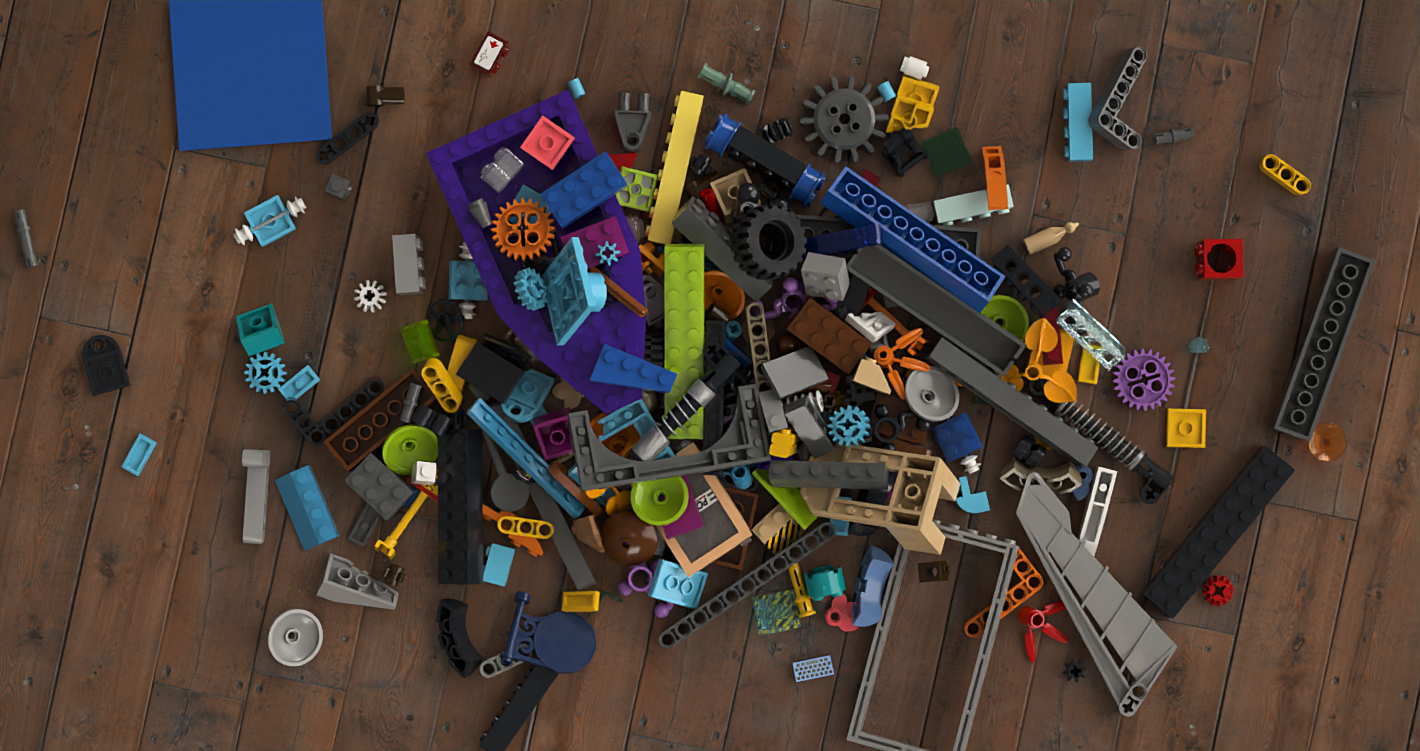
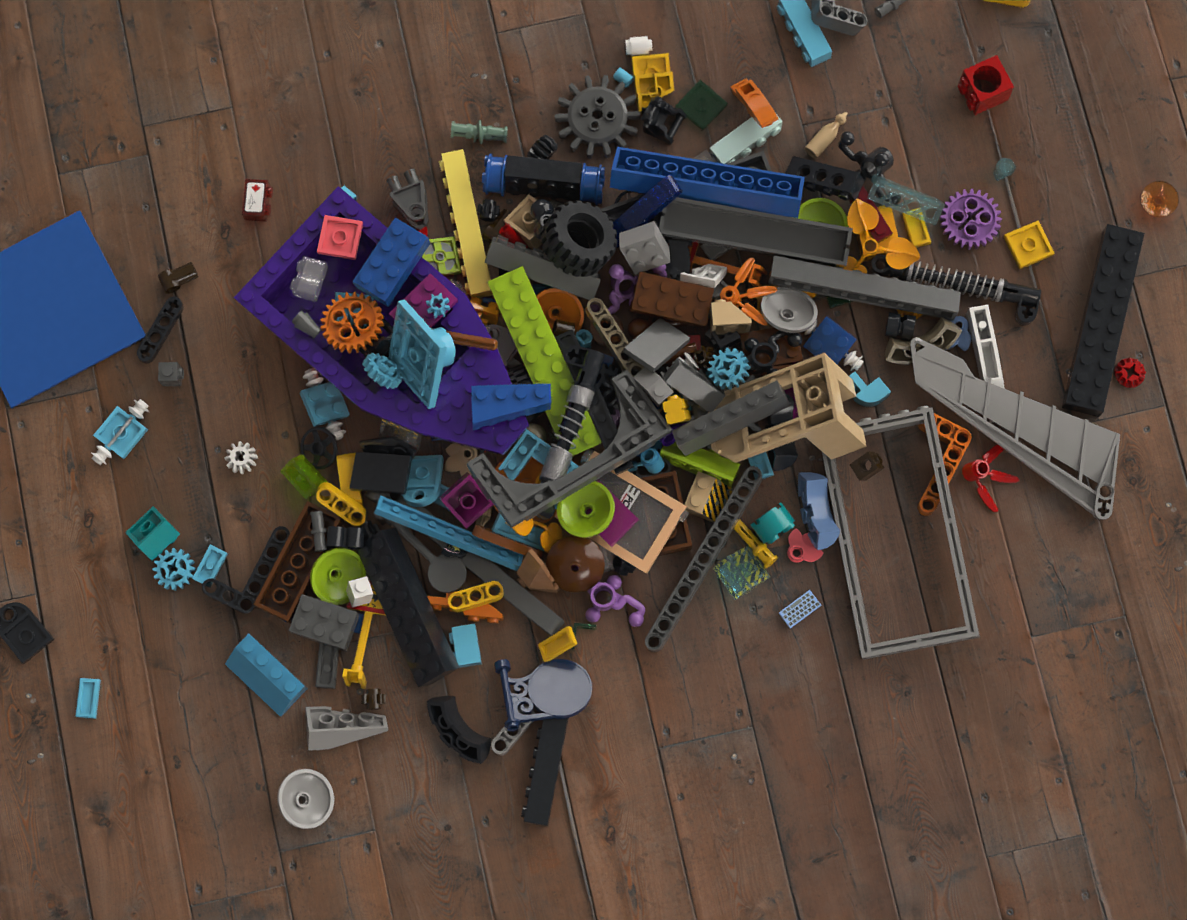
camera: 20 degrees left, 10 degrees down
(256, 494) = (201, 652): light grey beam -> none
(408, 264) = (263, 411): light grey brick -> none
(674, 586) = (637, 588): medium azure tile -> none
(1070, 667) = (1038, 495): black gear -> none
(1322, 344) = (1112, 118): dark grey brick -> none

